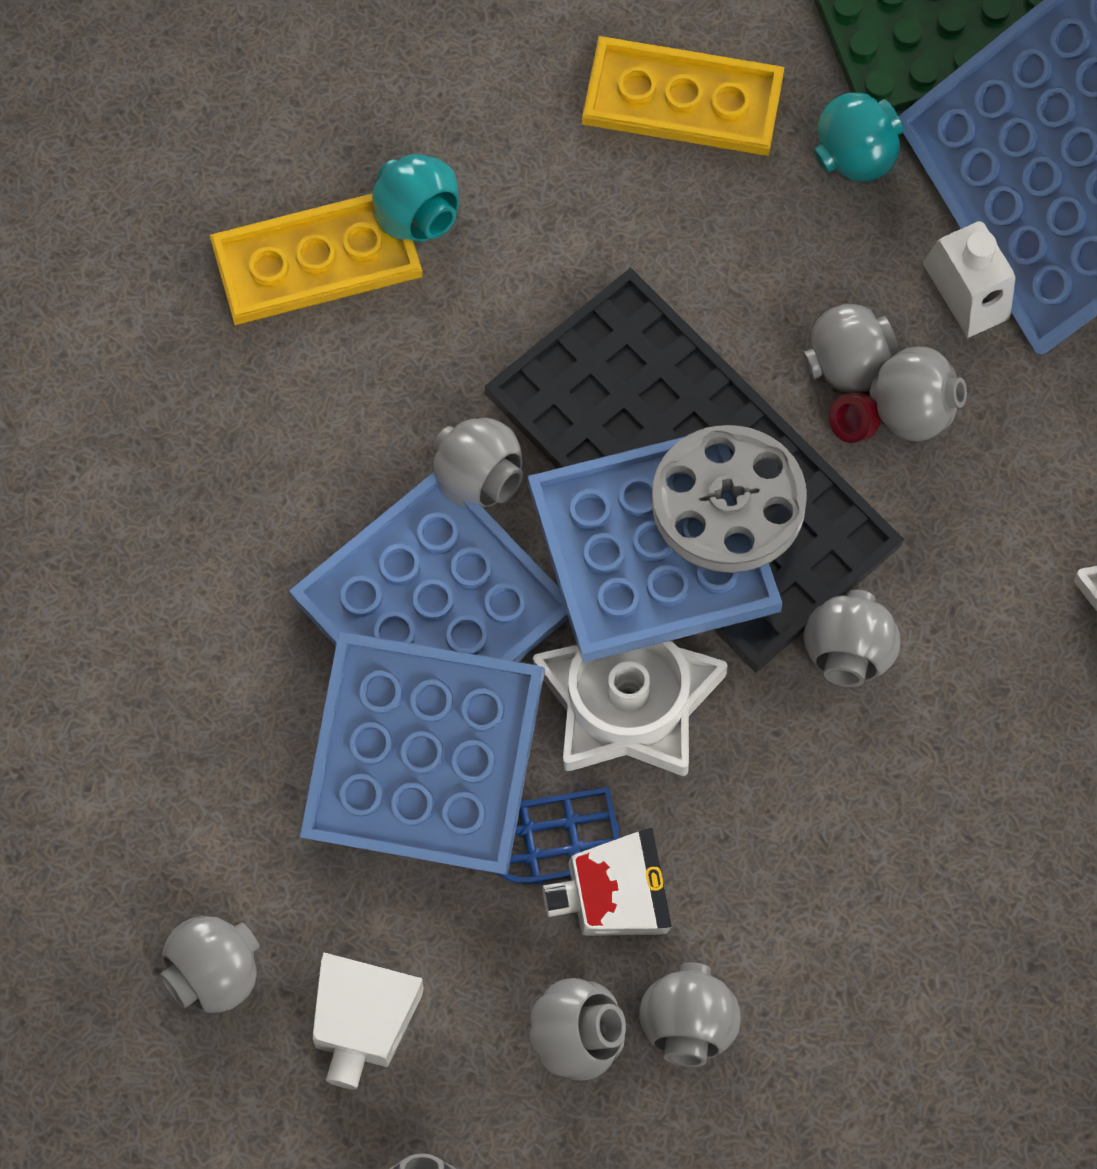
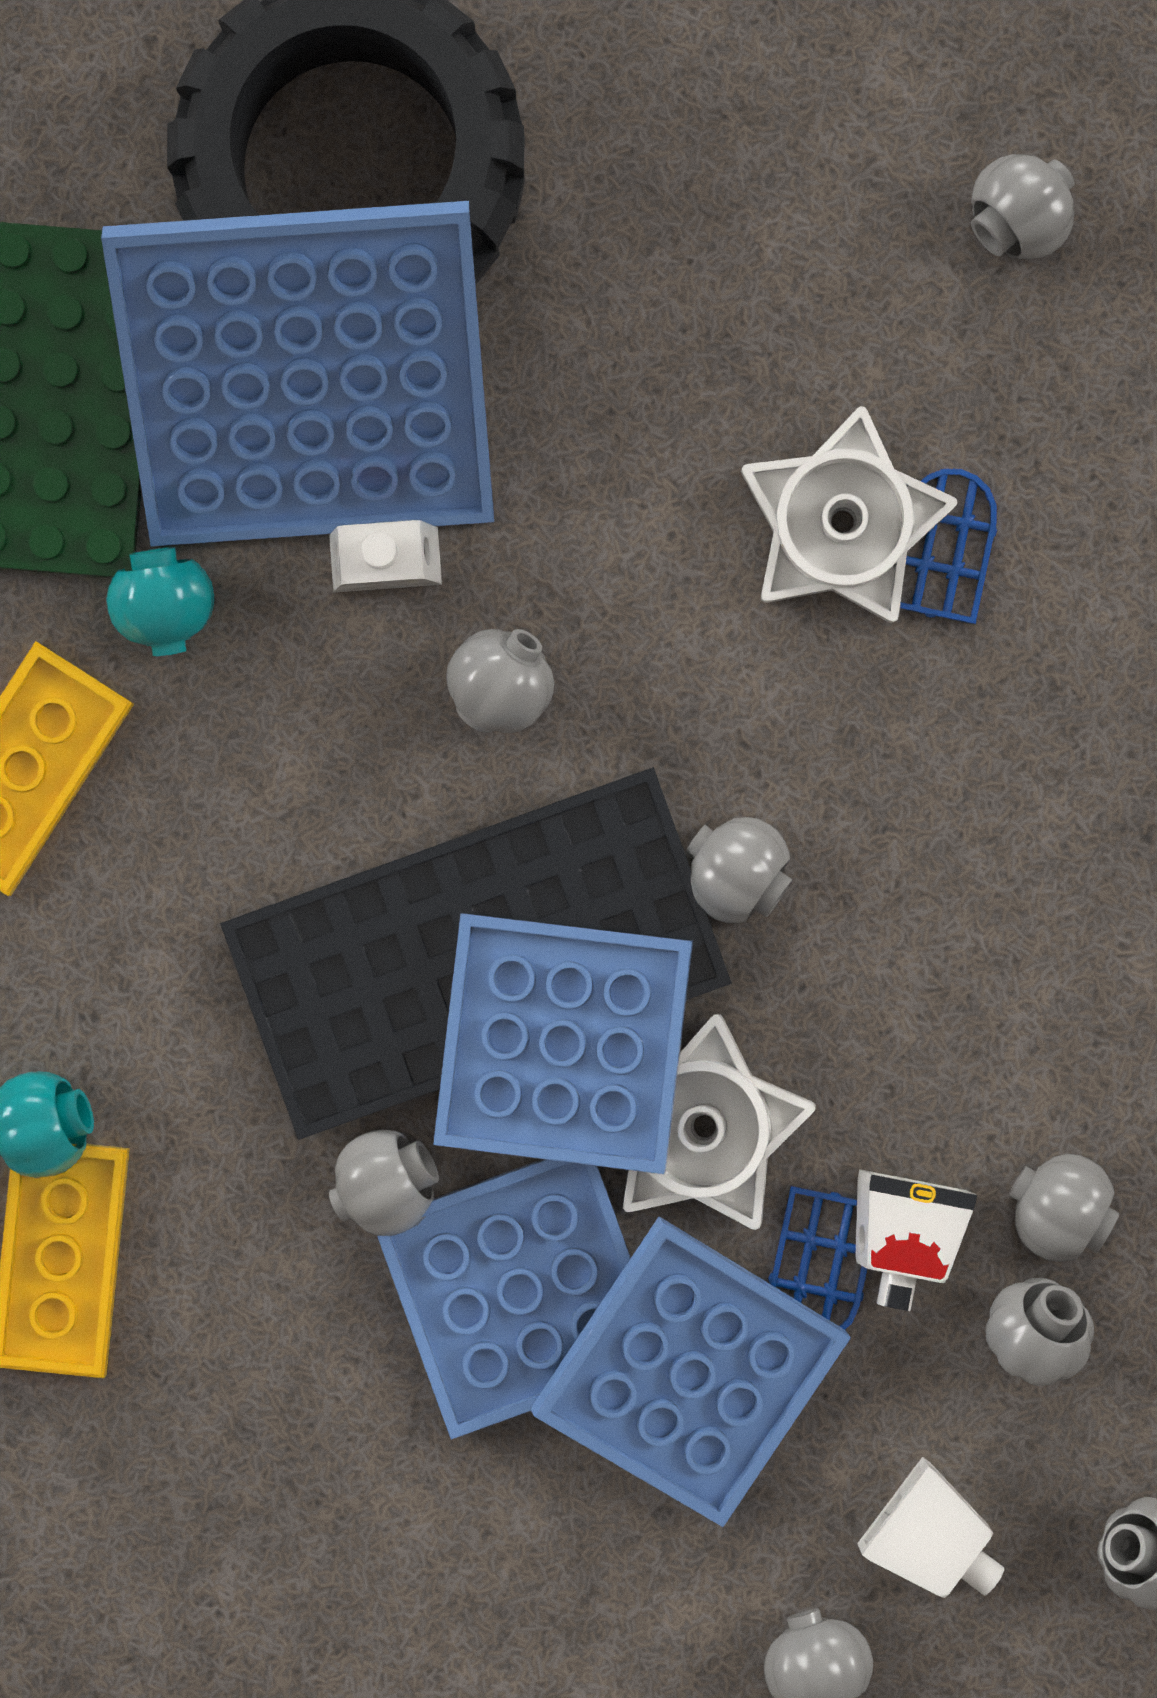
camera: 60 degrees left, 20 degrees up
(752, 496) = (523, 957): light grey wedge -> none
(849, 347) = (410, 724): light grey plant -> none
(854, 417) = (492, 756): dark red tile -> none

